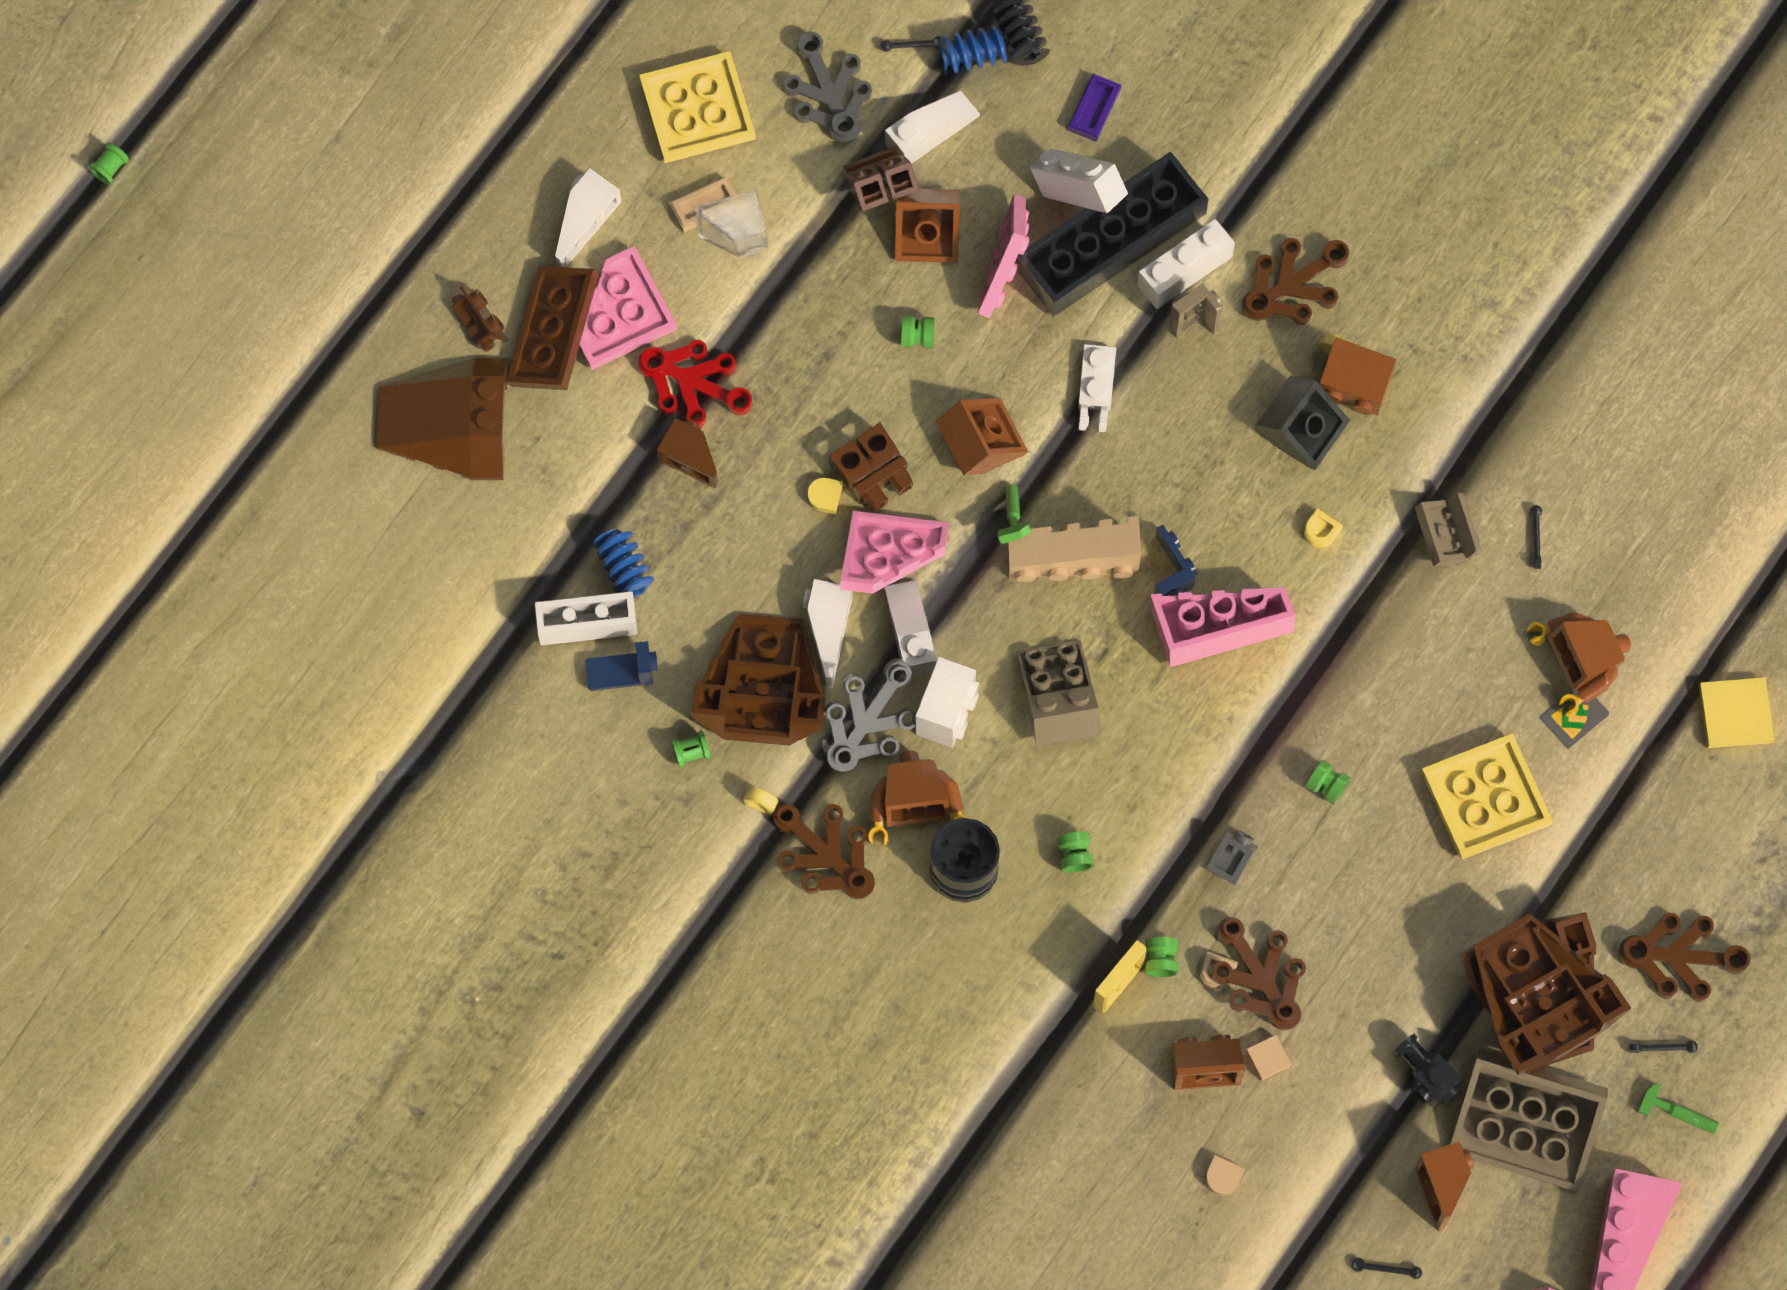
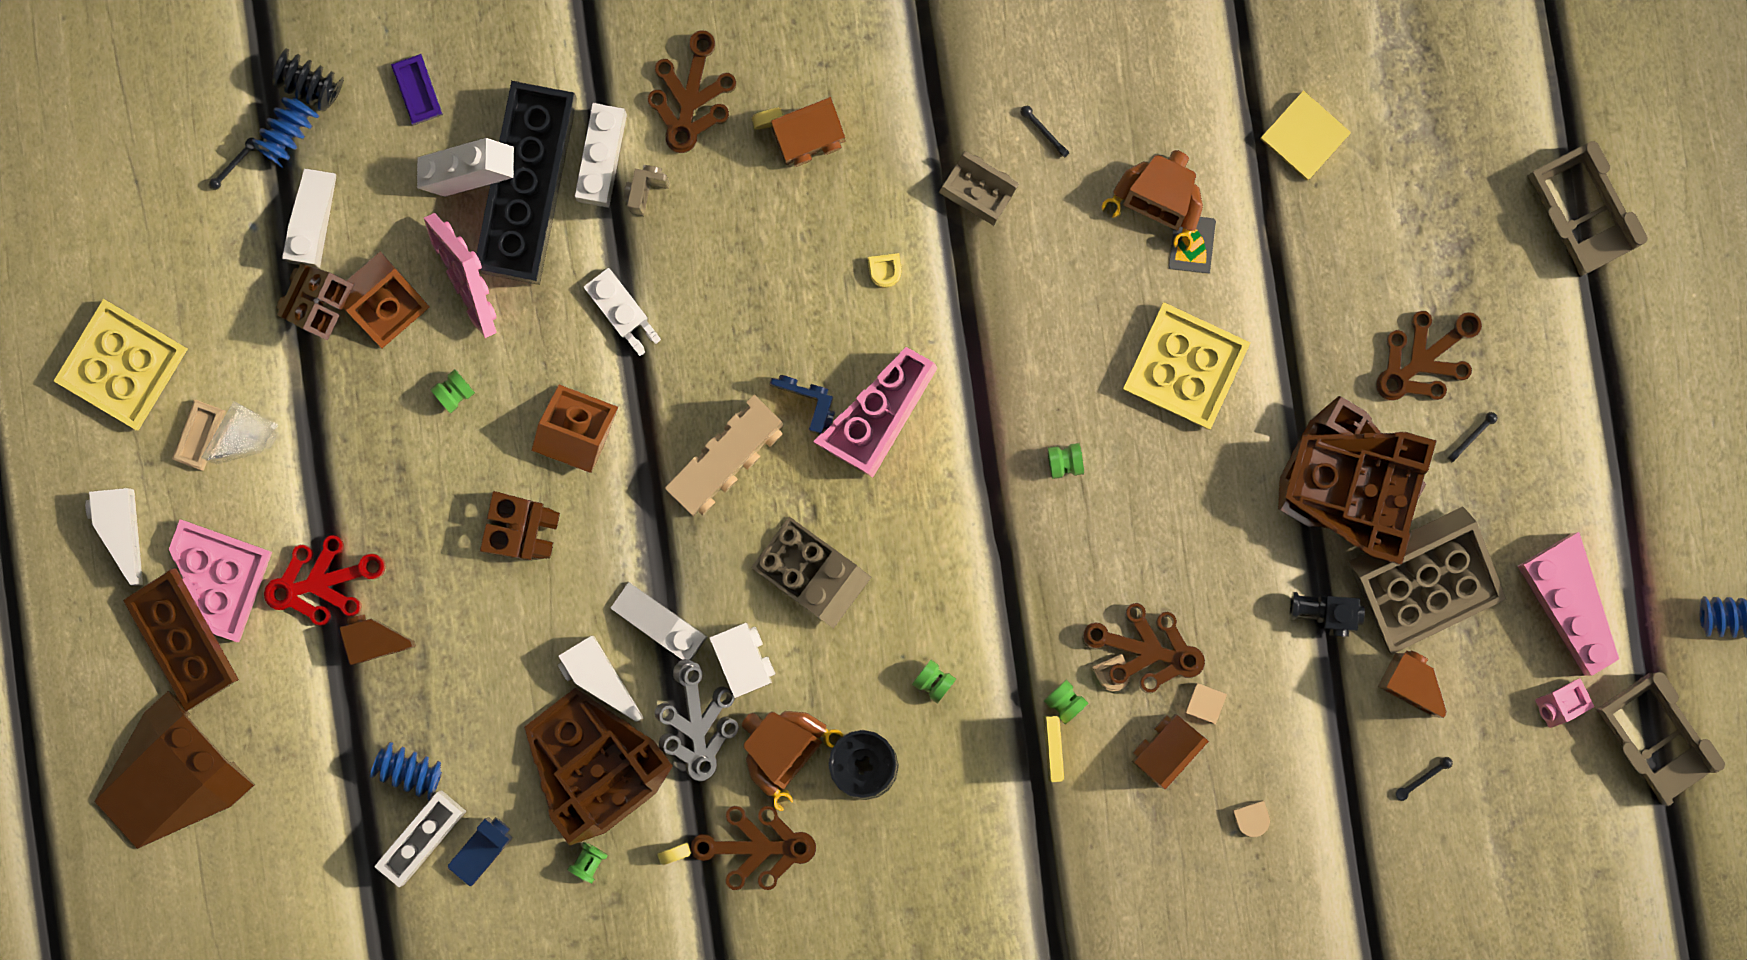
camera: 45 degrees left, 15 degrees up
(473, 307) = (104, 675): reddish brown hinge -> none
(825, 495) = (502, 578): light yellow tile -> none
(828, 93) = (209, 261): dark grey plant -> none
(889, 548) = (590, 581): bright pink plate -> none
(1015, 531) = (672, 484): bright green piece -> none
(1232, 856) = (1047, 578): dark grey bracket -> none
(1303, 421) = (798, 199): pearl dark grey slope -> none
(1676, 1110) = (1521, 476): bright green piece -> none

